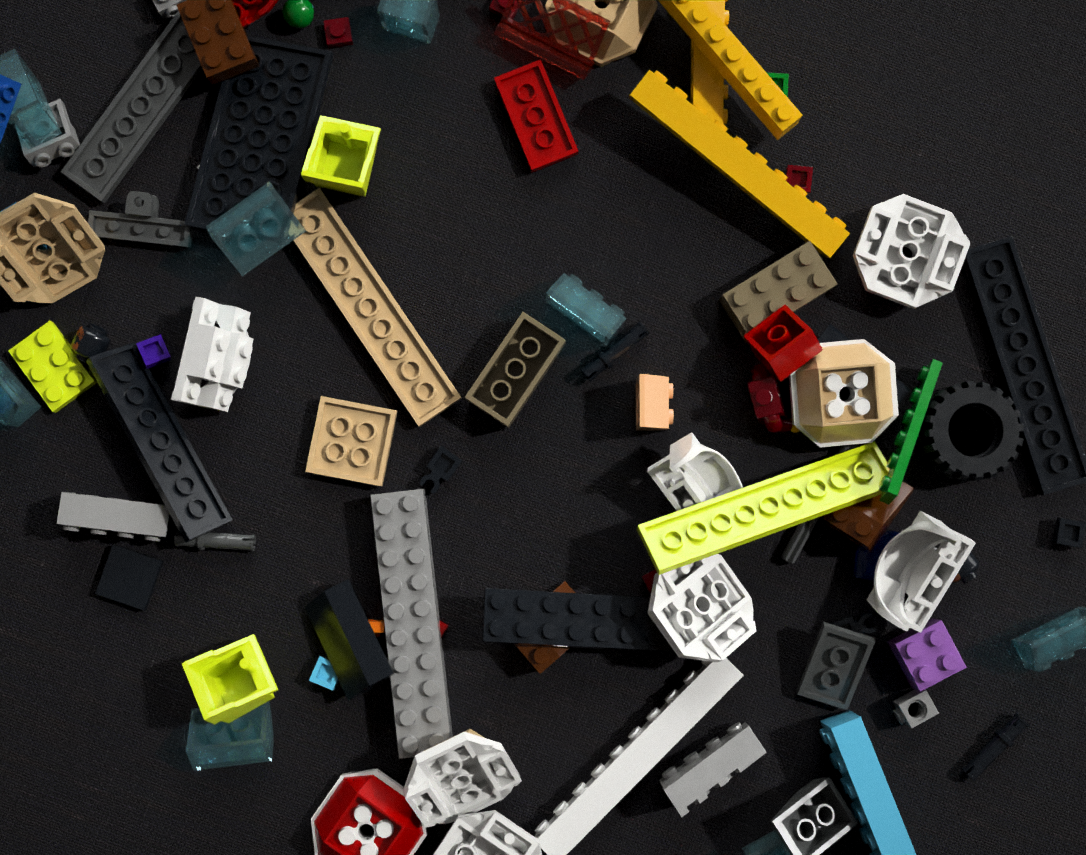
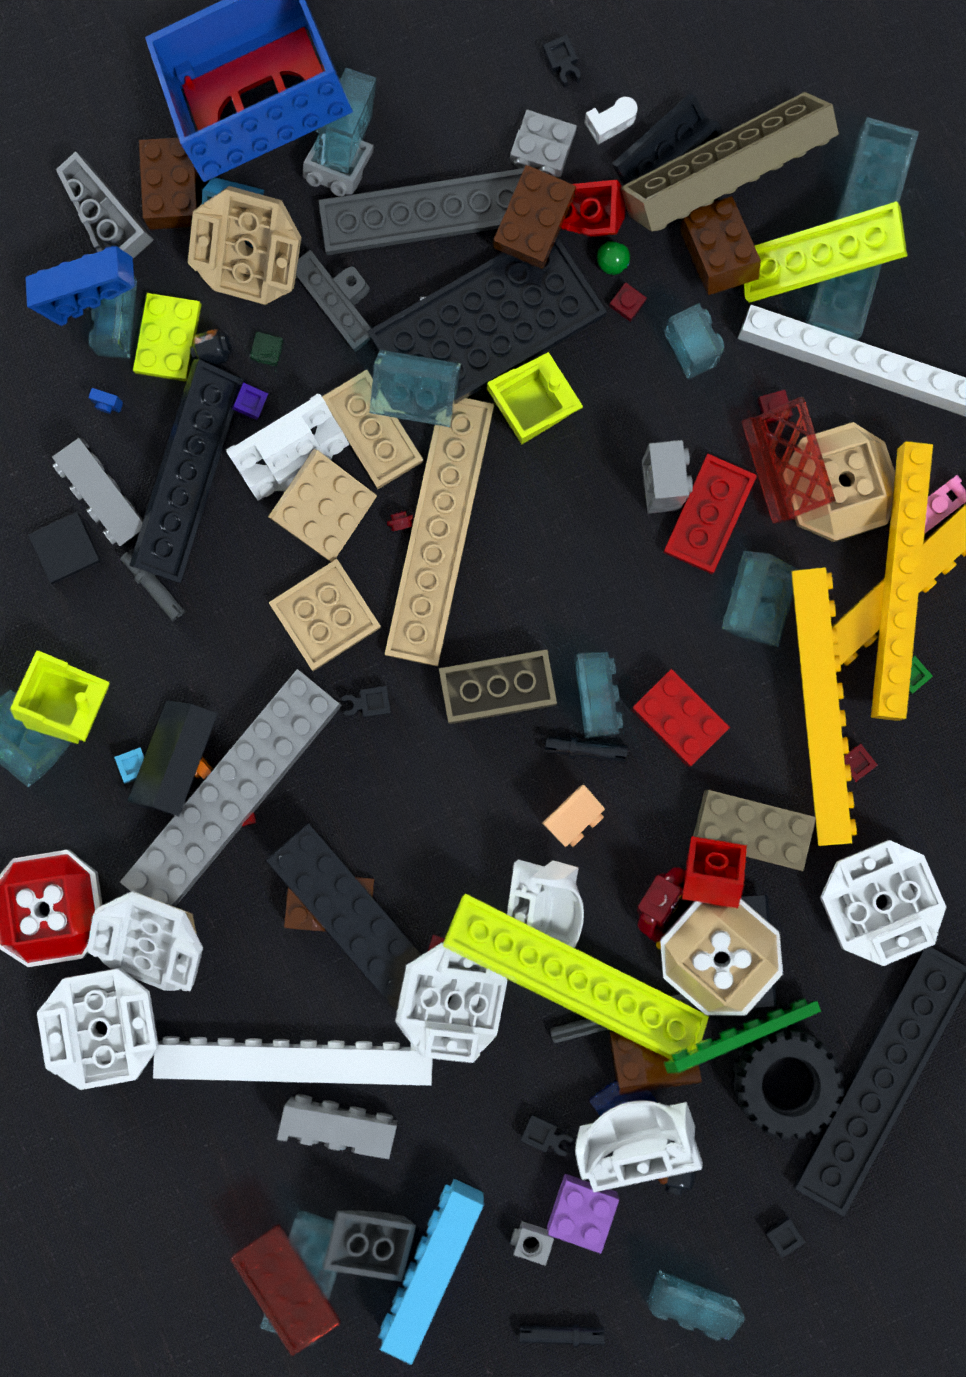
camera: 50 degrees right, 0 degrees up
(55, 451) = (105, 401): none -> blue plate
(128, 306) = (266, 349): none -> clear green plate
(263, 290) = (375, 438): none -> tan plate
(274, 370) = (322, 505): none -> tan plate
(337, 328) = (400, 521): none -> dark red plate
(483, 118) = (666, 476): none -> light grey brick
(625, 137) = (760, 598): none -> clear light blue slope
(655, 268) = (679, 718): none -> red brick
(835, 666) = (506, 1150): dark grey plate -> none

